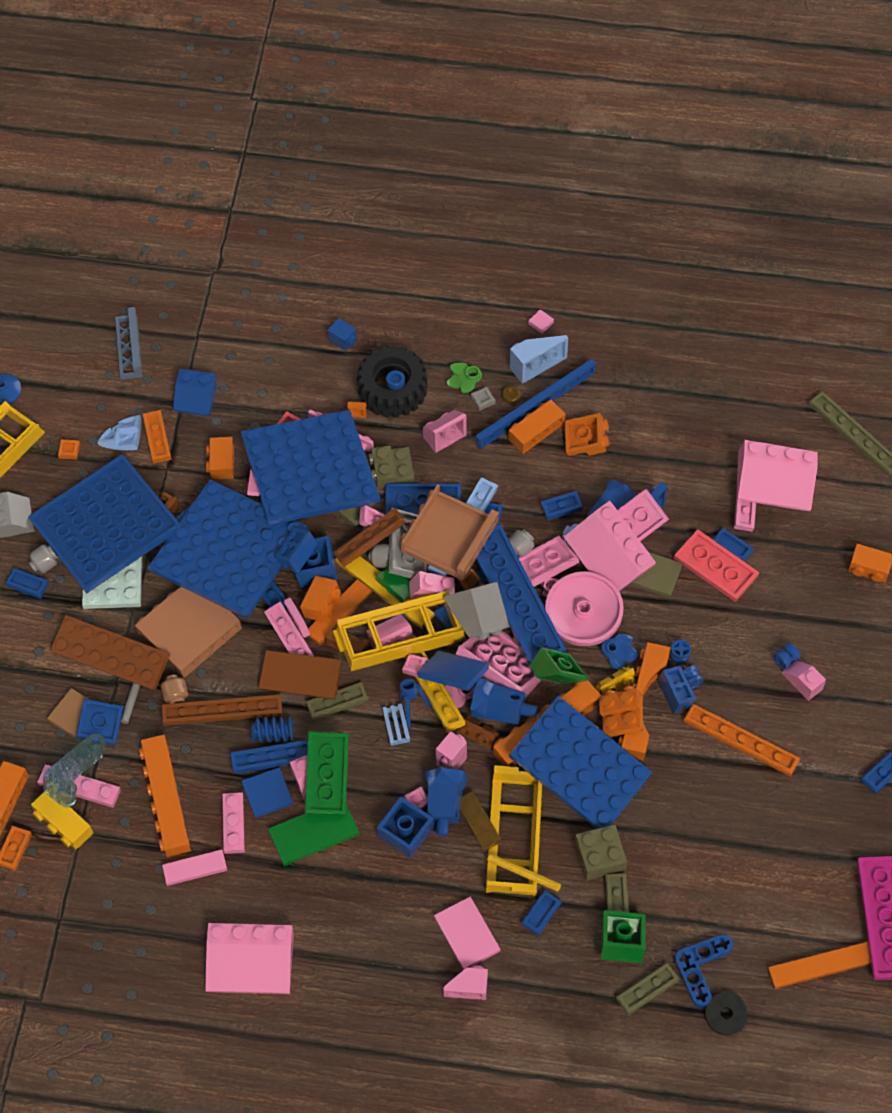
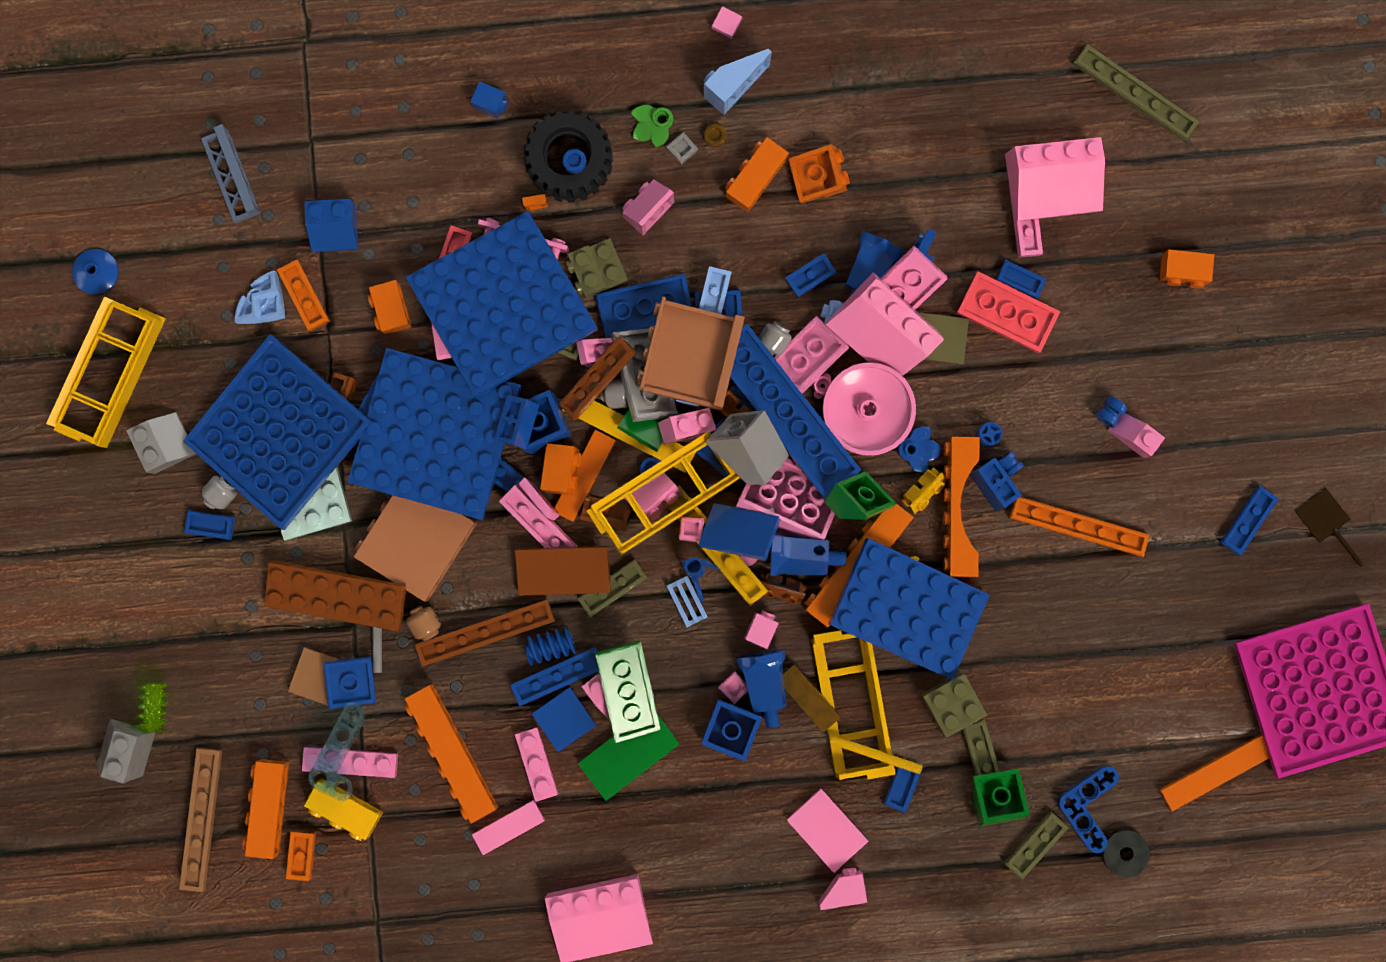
camera: 15 degrees left, 25 degrees up
(69, 449) = (202, 336): orange tile -> none
(551, 393) = (749, 143): blue tile -> none
(622, 711) = (942, 534): orange plate -> none

